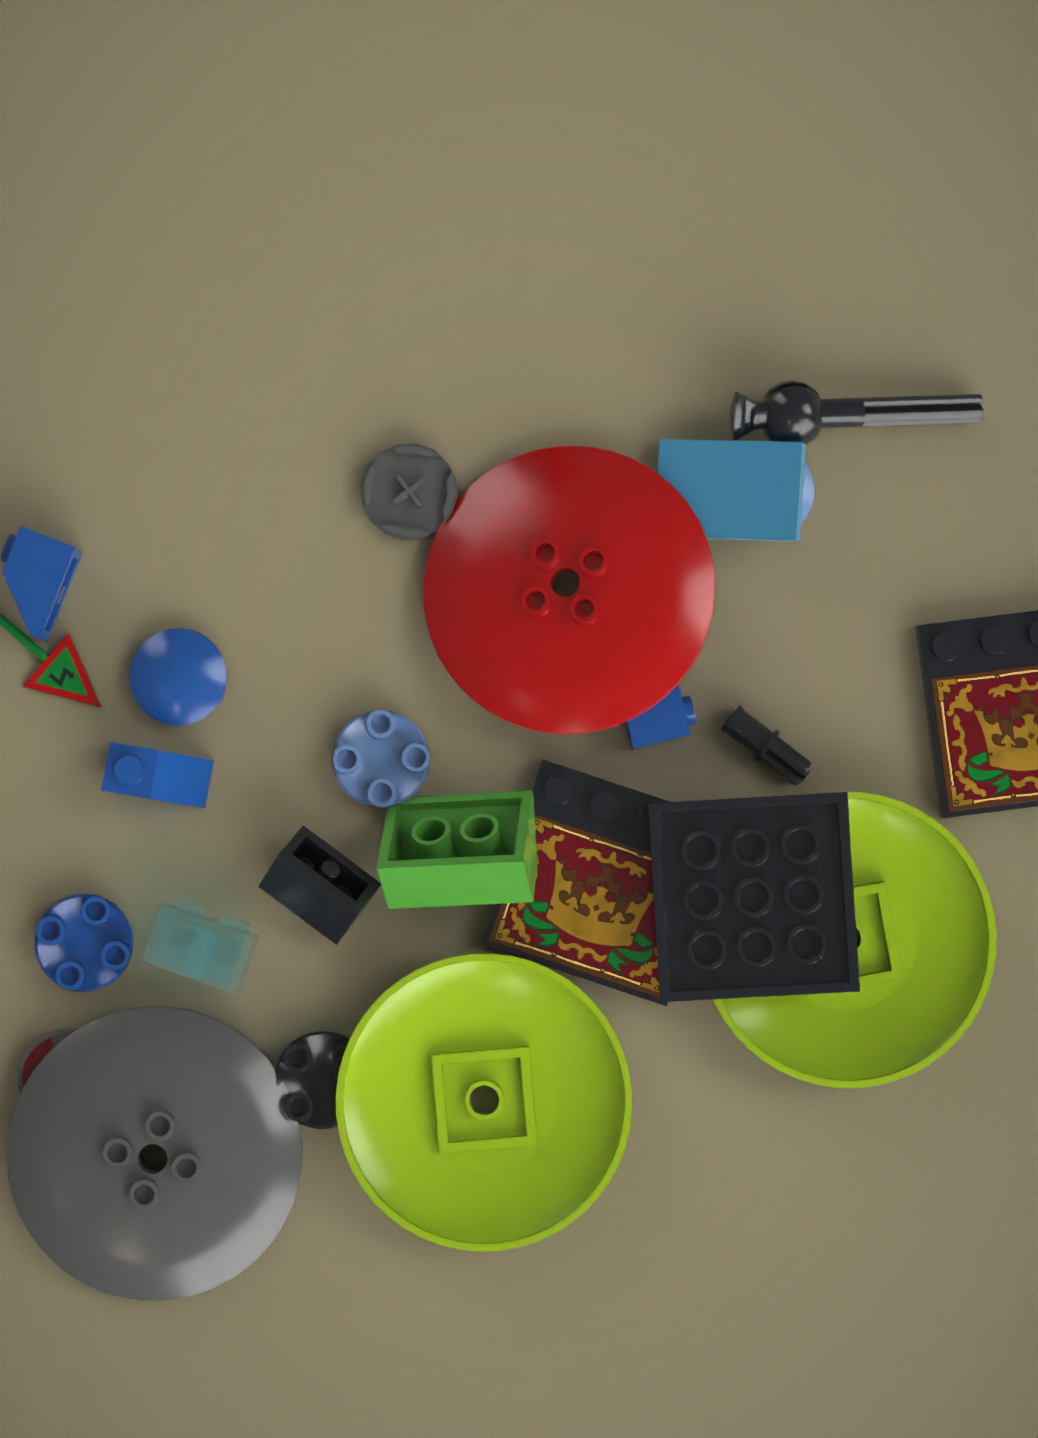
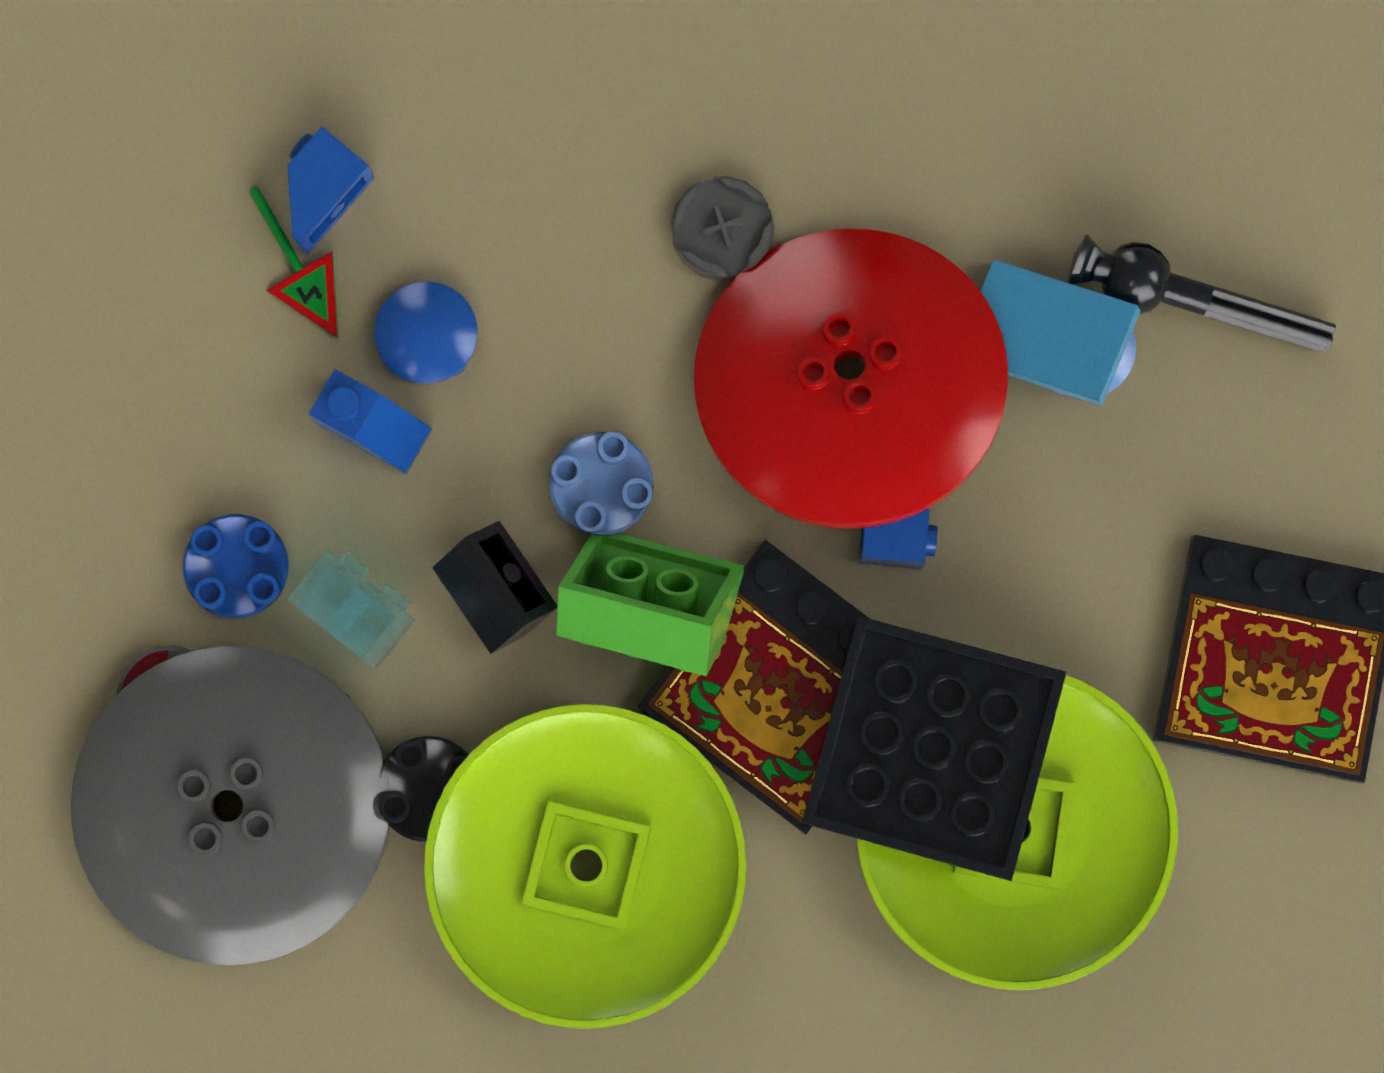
camera: 20 degrees right, 5 degrees down
(767, 746) = (999, 604): black axle -> none

